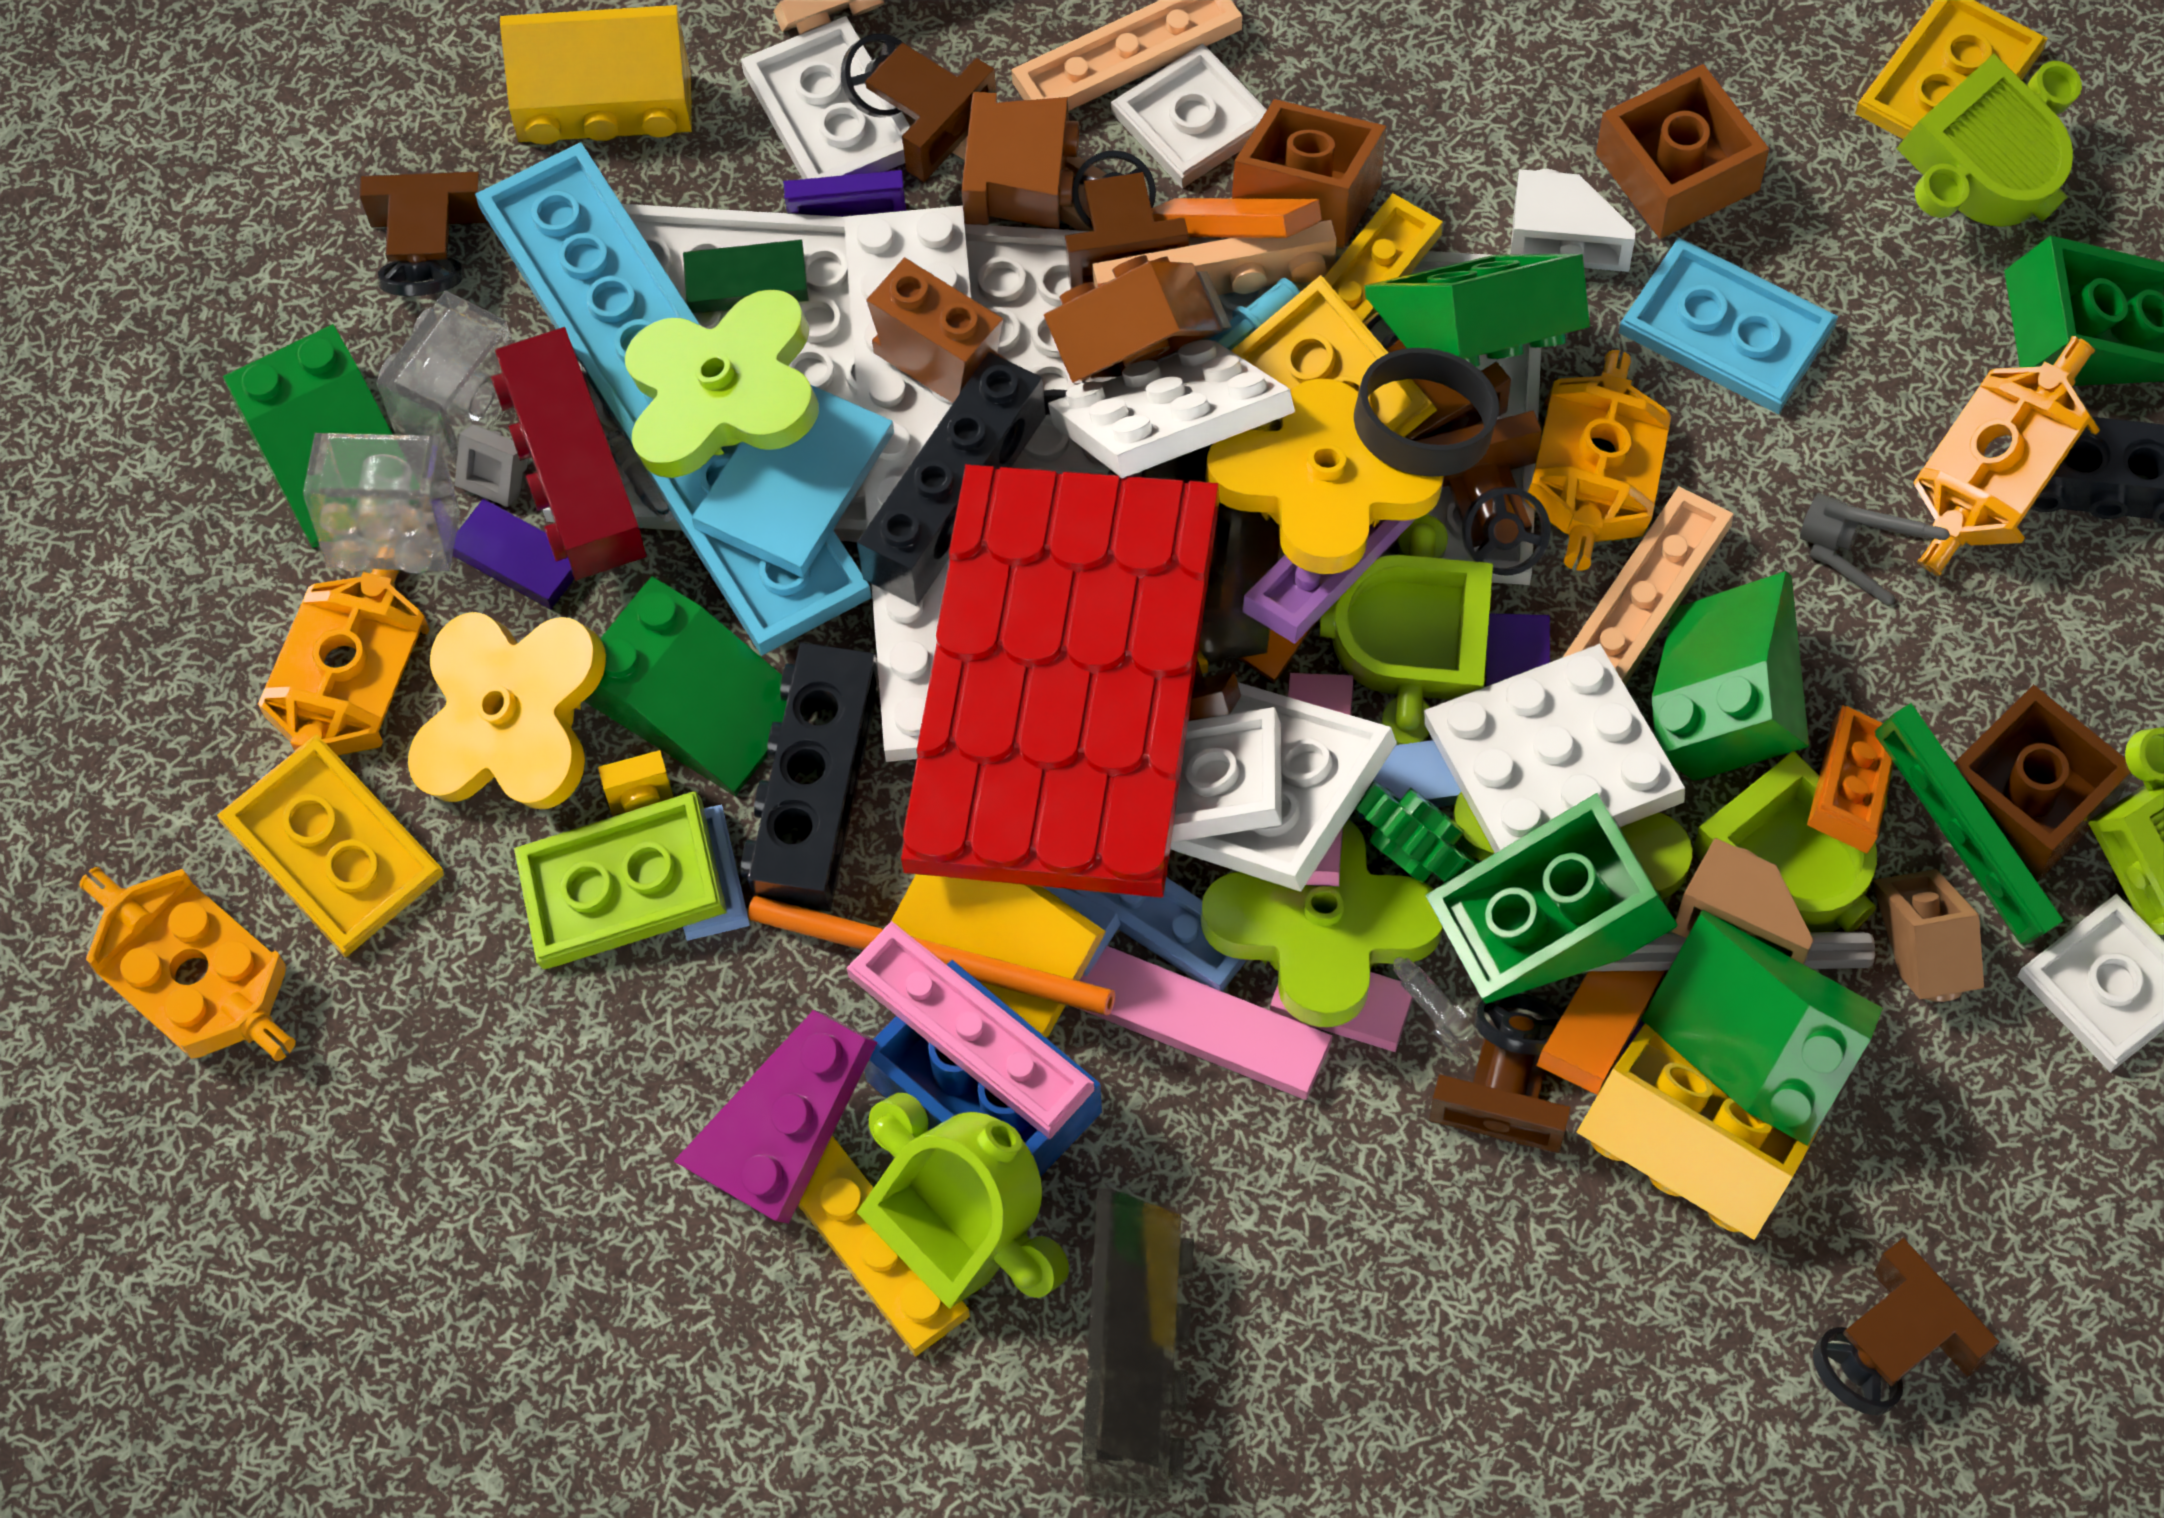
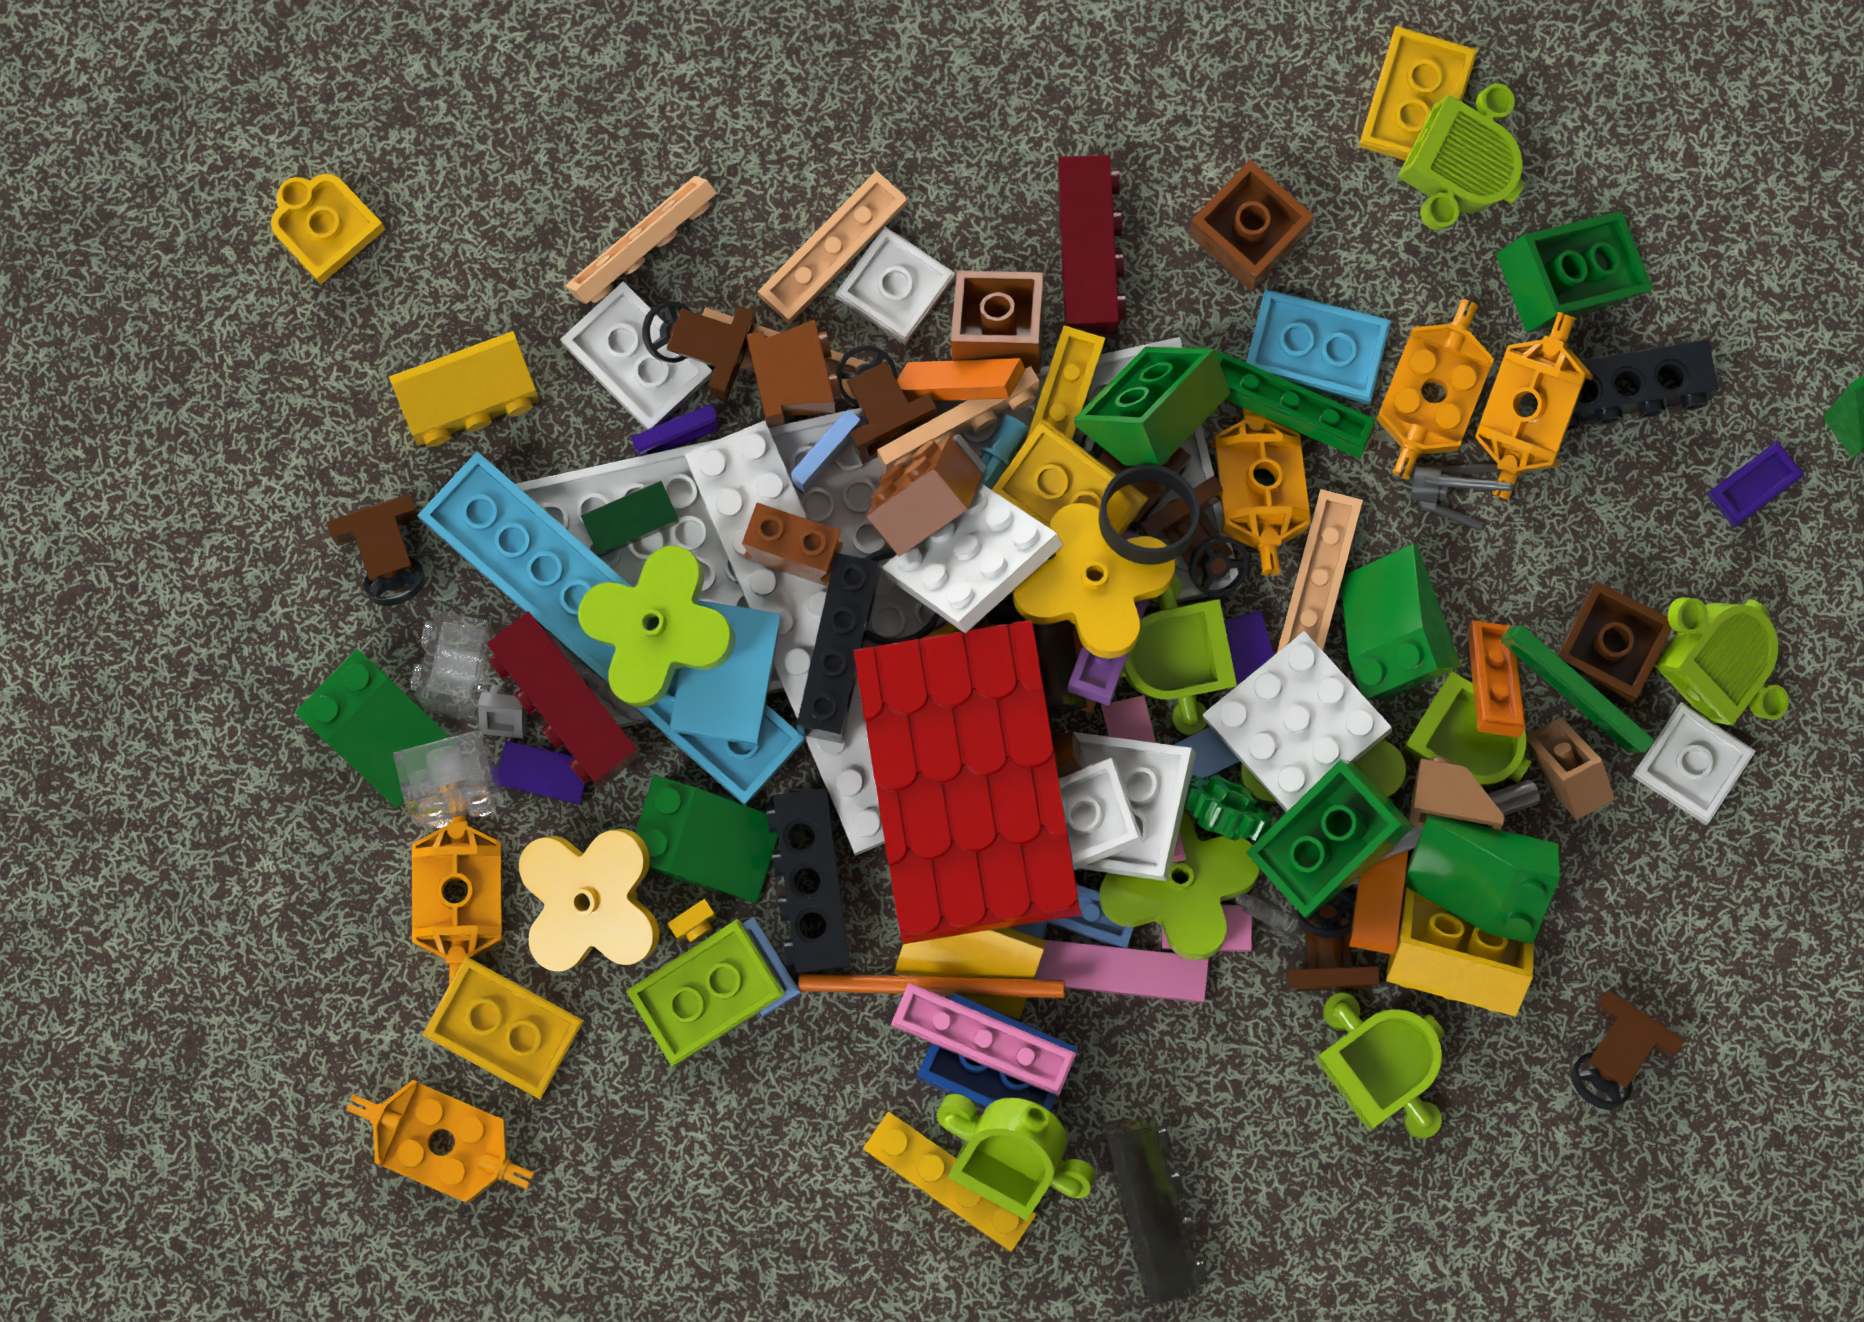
camera: 20 degrees left, 15 degrees up
(782, 1118) = (878, 1131): magenta wing -> none
(1023, 260) = (825, 452): none -> light blue tile
(1460, 116) = (1088, 243): none -> dark red brick
(1540, 1253) = (1384, 1063): none -> lime piece
(1569, 217) = (1184, 302): white slope -> none
(1675, 380) = (1295, 406): none -> green tile
(1885, 371) = (1443, 356): none -> light orange plate

